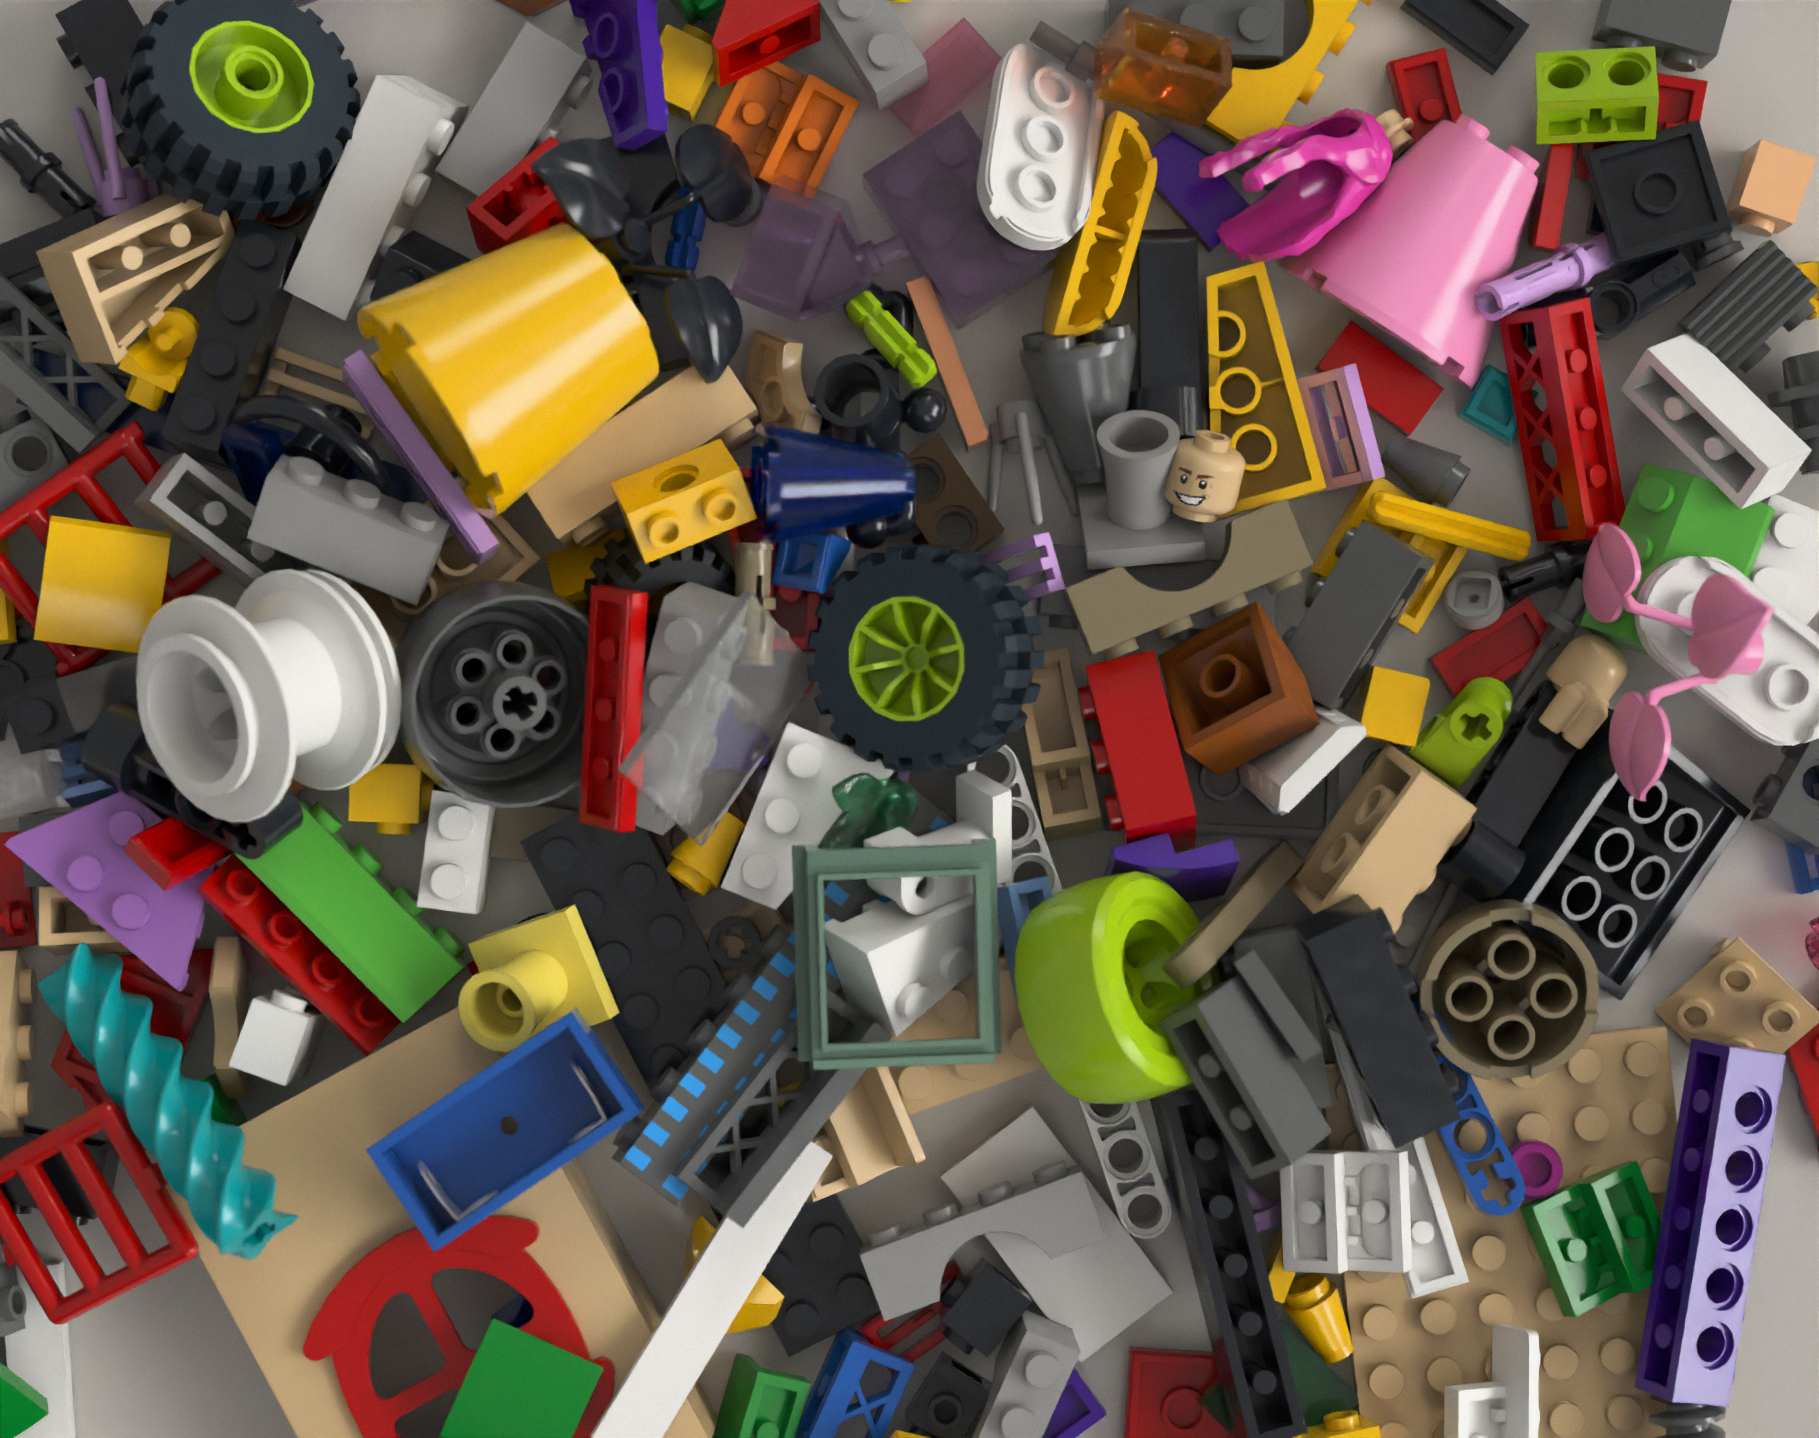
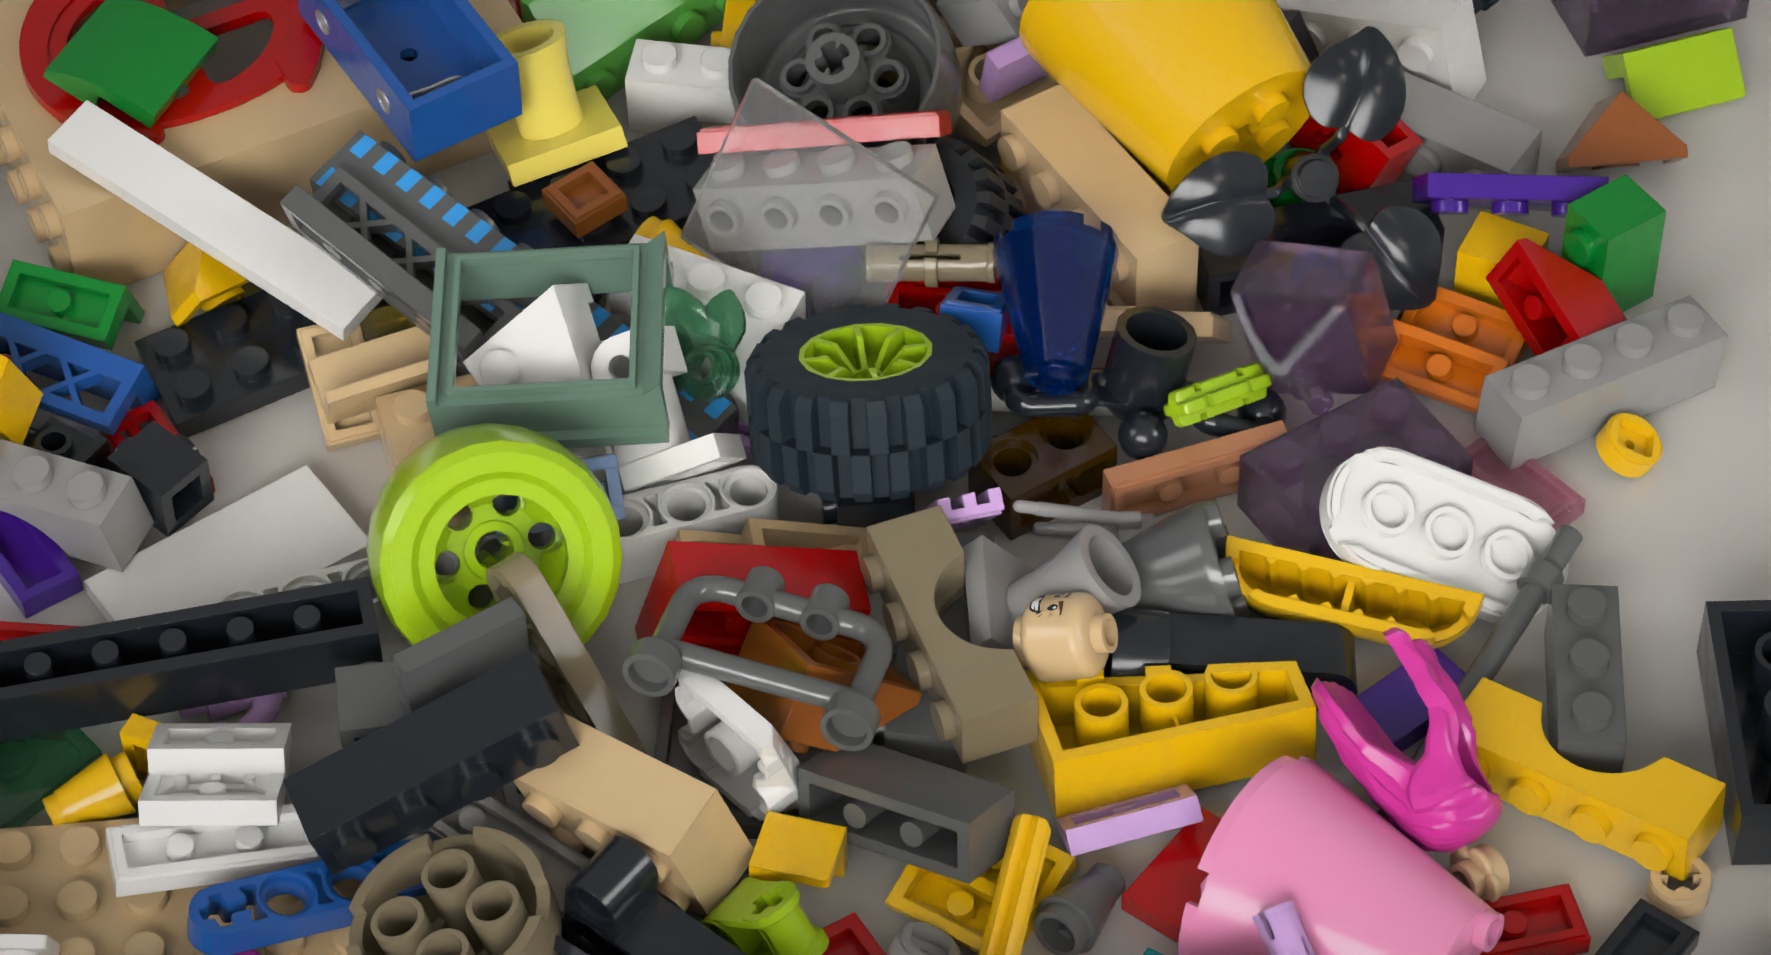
camera: 95 degrees right, 40 degrees down
(646, 941) = (585, 199): none -> dark orange tile
(683, 500) = (1031, 172): yellow brick -> none
(909, 1263) = (251, 526): light grey arch -> none
(1162, 68) = (1531, 613): clear orange brick -> none
(1192, 874) = (627, 619): dark purple slope -> none
(1205, 689) = (849, 711): none -> dark grey bar
(1245, 1077) = (377, 617): dark grey brick -> none

